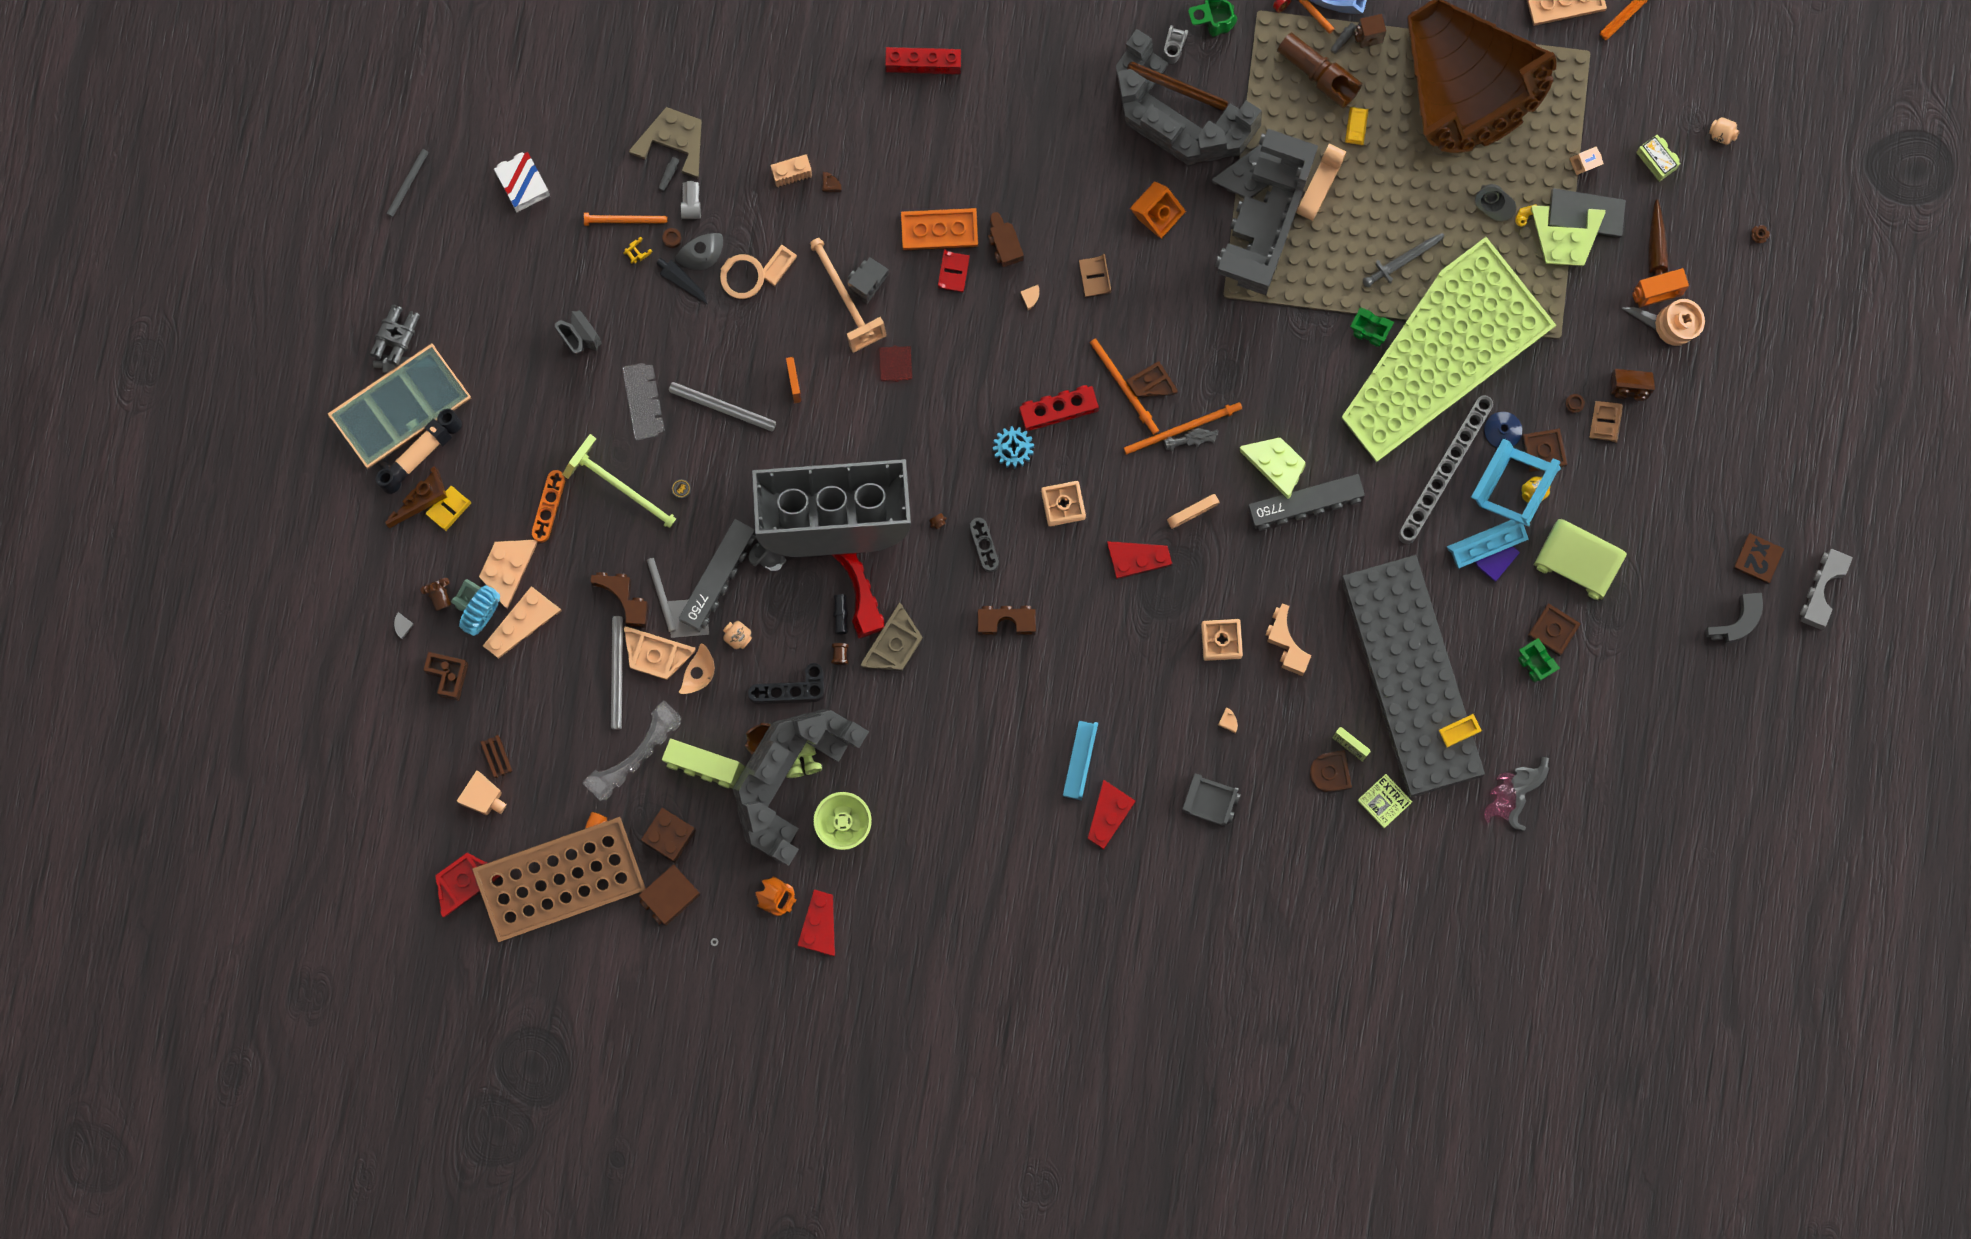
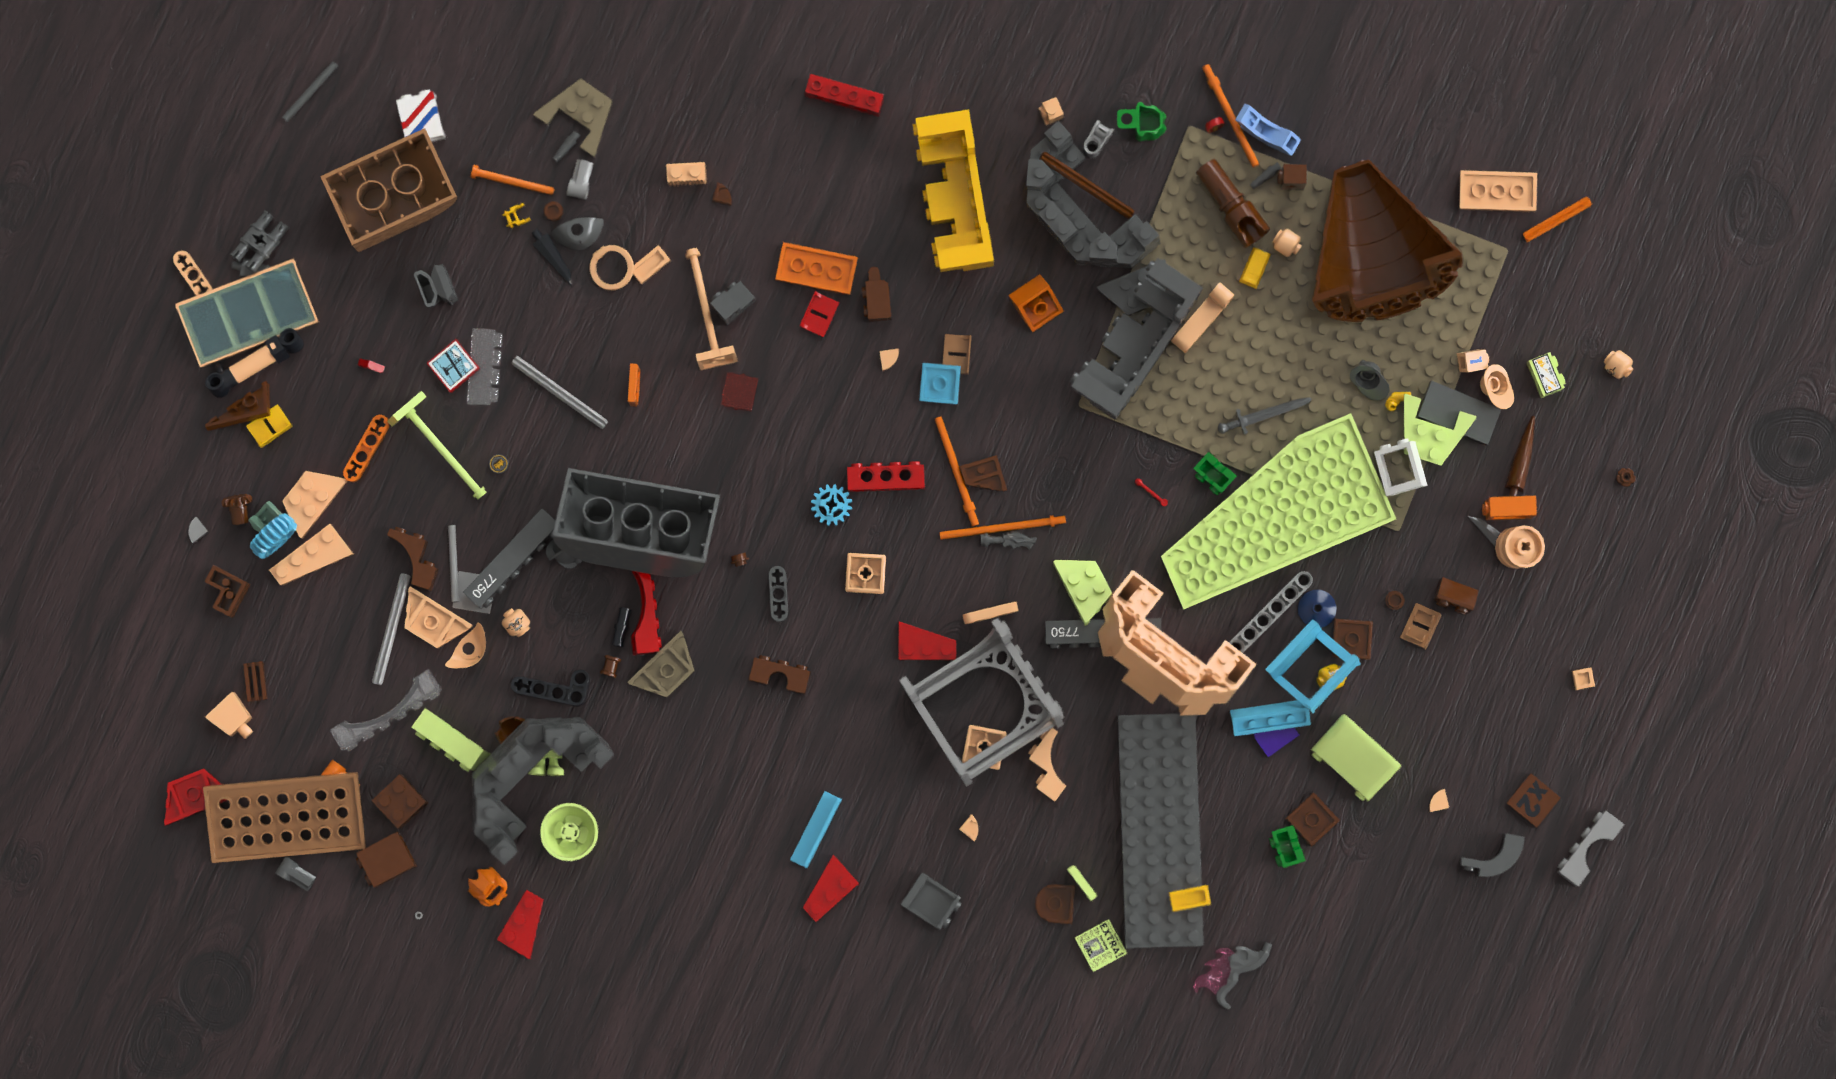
camera: 25 degrees right, 5 degrees up
(323, 378) = (189, 261): none -> light nougat beam
(511, 252) = (390, 190): none -> medium nougat brick
(526, 425) = (371, 365): none -> tile
(579, 931) = (293, 872): none -> dark grey piece
(613, 406) = (453, 365): none -> tile
(1039, 75) = (951, 140): none -> yellow brick
(1086, 307) = (940, 383): none -> medium azure tile
(1123, 27) = (1051, 111): none -> light nougat brick
(1208, 535) = (995, 642): none -> light grey arch
(1329, 366) = (1163, 502): none -> red hinge
(1373, 511) = (1159, 663): none -> light nougat brick
(1381, 94) = (1287, 242): none -> light nougat head
(1555, 293) = (1419, 481): none -> white window
(1615, 179) = (1497, 386): none -> light nougat piece
(1669, 582) = (1438, 801): none -> light nougat tile
(1773, 432) = (1583, 678): none -> light nougat tile

